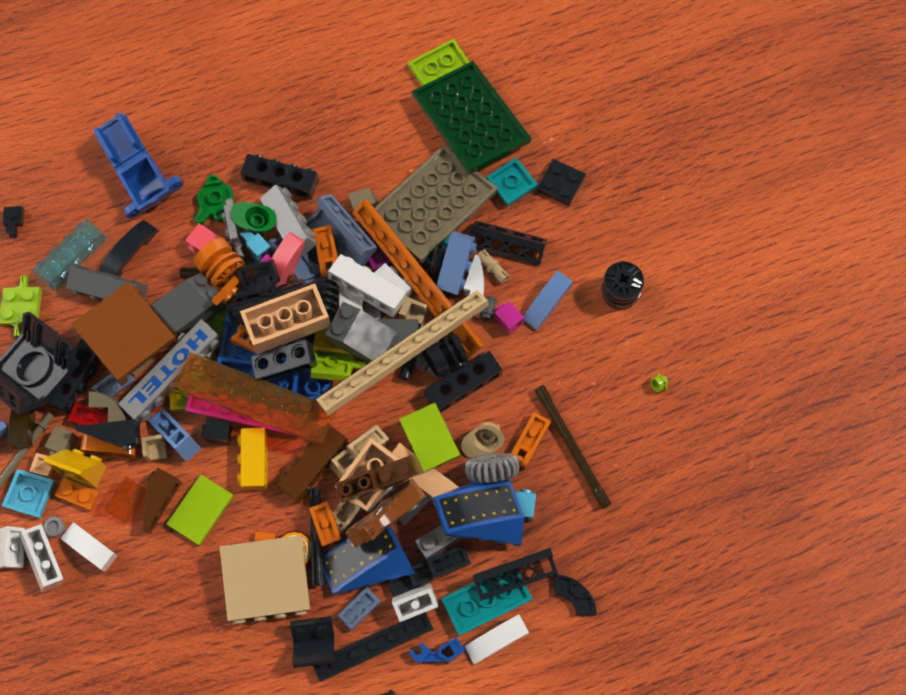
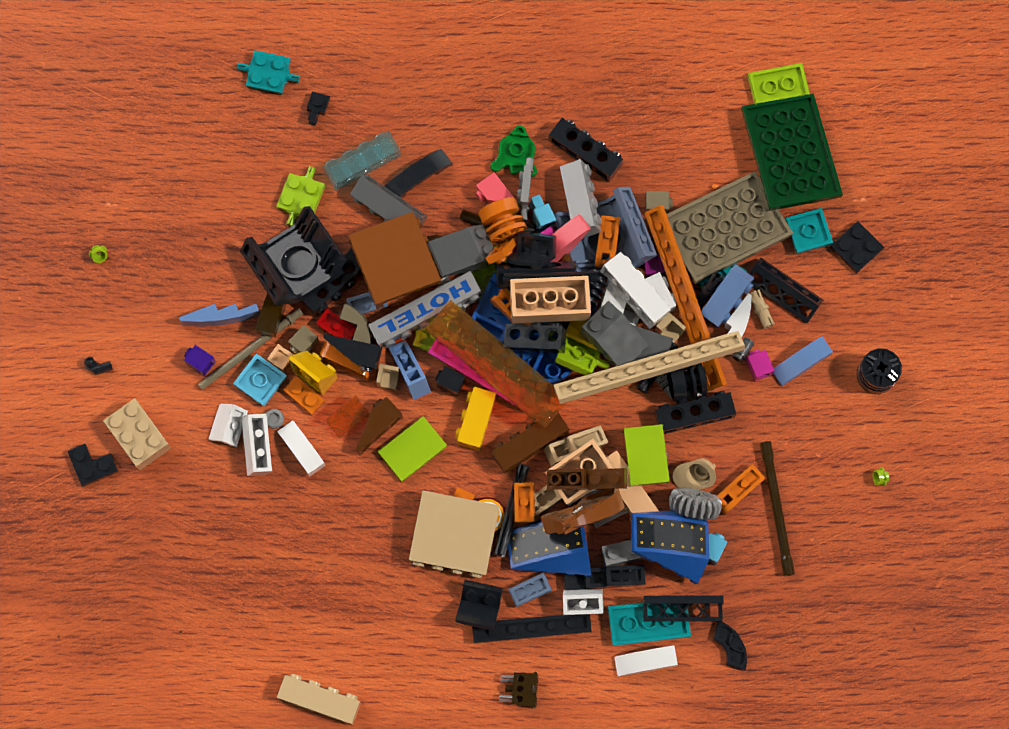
camera: 15 degrees right, 5 degrees up
(134, 166) = (449, 93): blue piece -> none
(253, 217) = (548, 185): green piece -> none
(428, 656) = (579, 654): blue piece -> none

